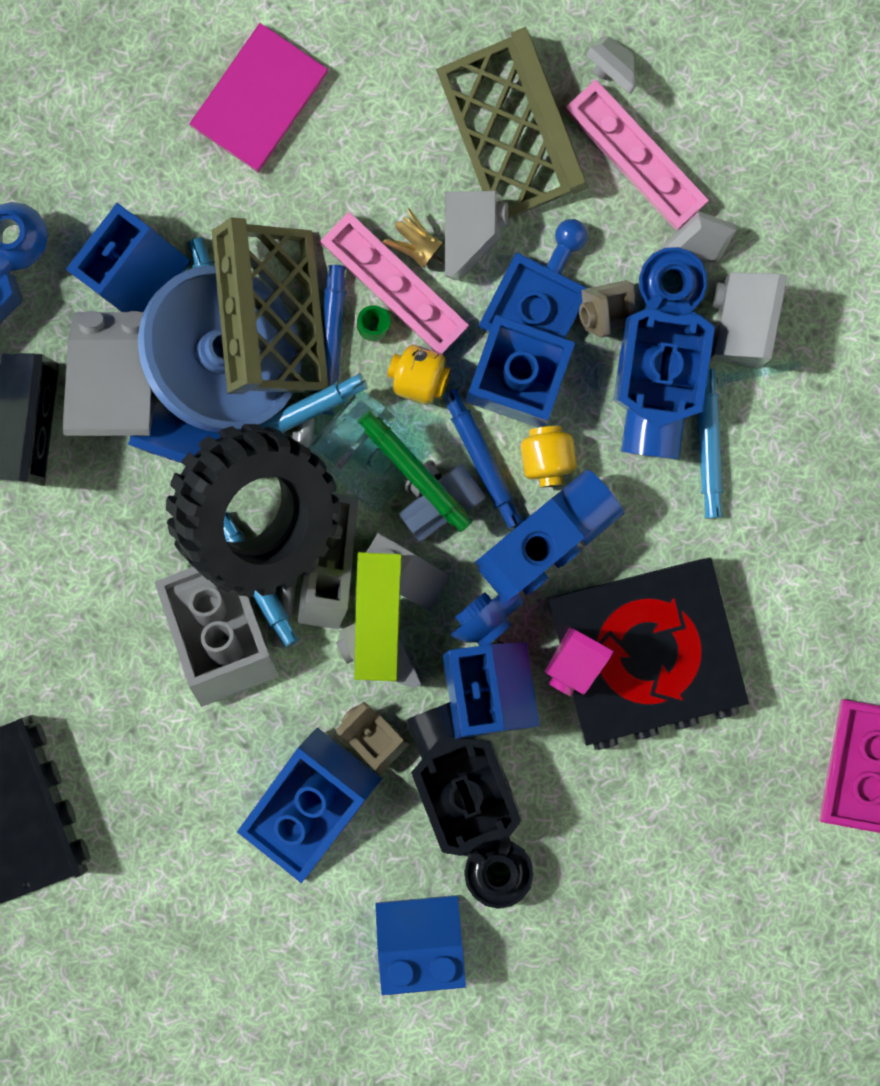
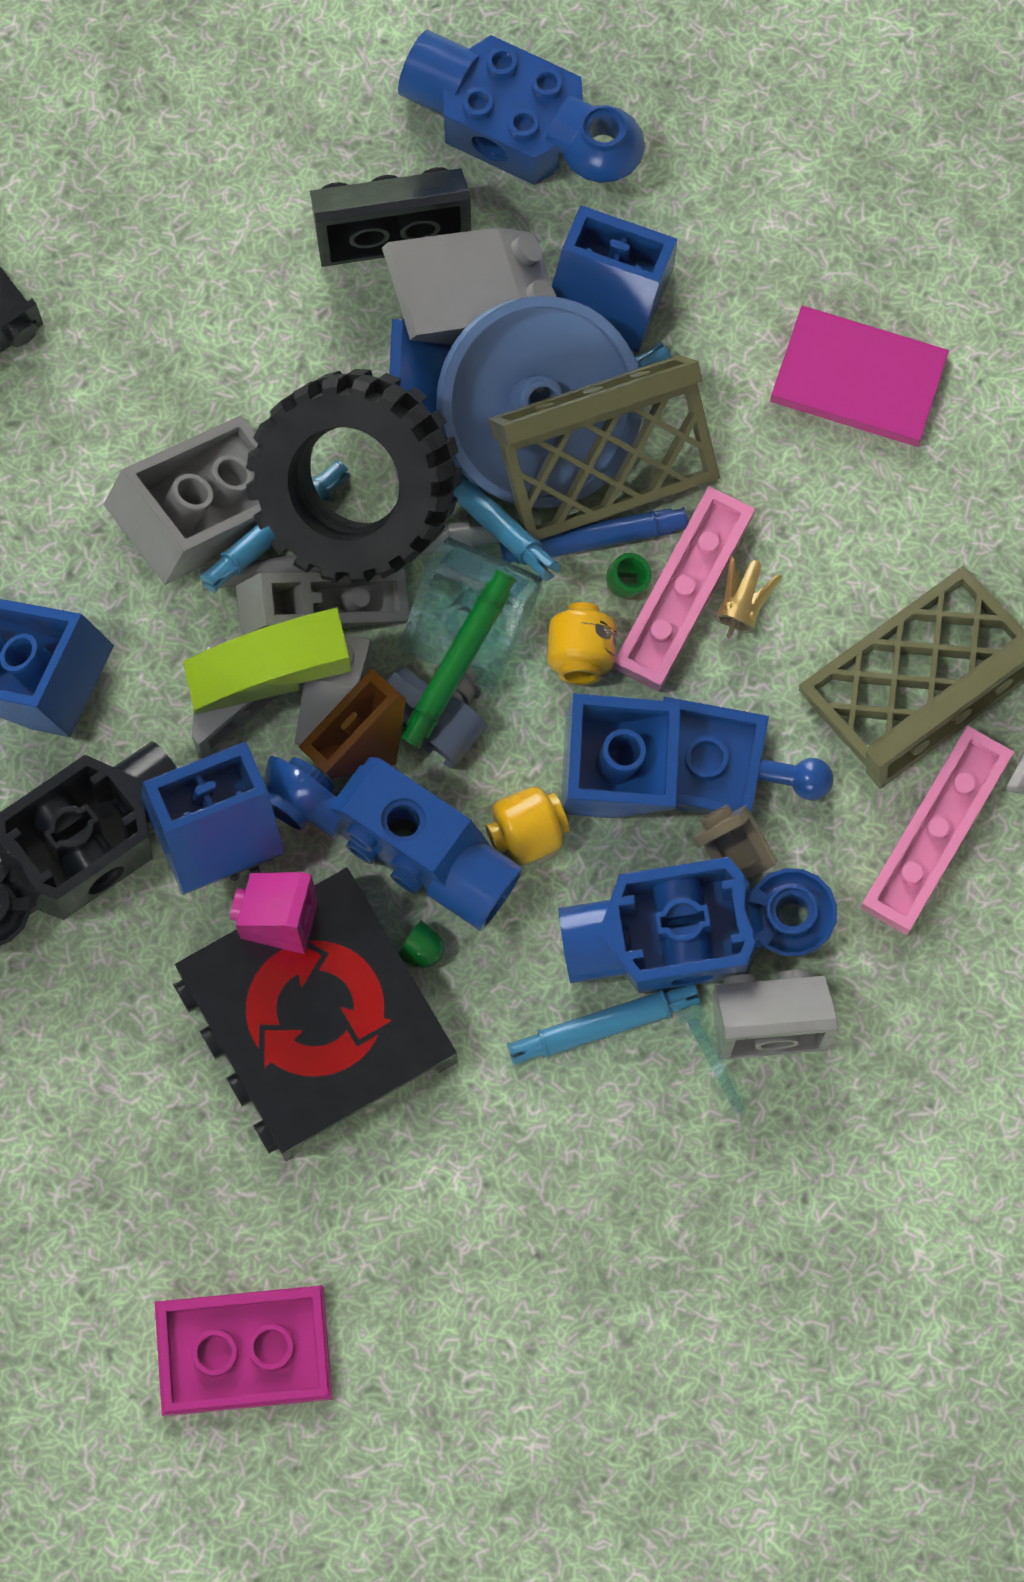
camera: 70 degrees right, 15 degrees down
(371, 736) = (119, 710): dark tan bracket -> none
(447, 562) = (358, 728): none -> reddish brown slope
(471, 228) = (777, 654): light grey slope -> none
(482, 458) = (506, 747): blue piece -> none
(616, 559) = (422, 947): none -> green hinge
(704, 237) = (860, 939): light grey piece -> none

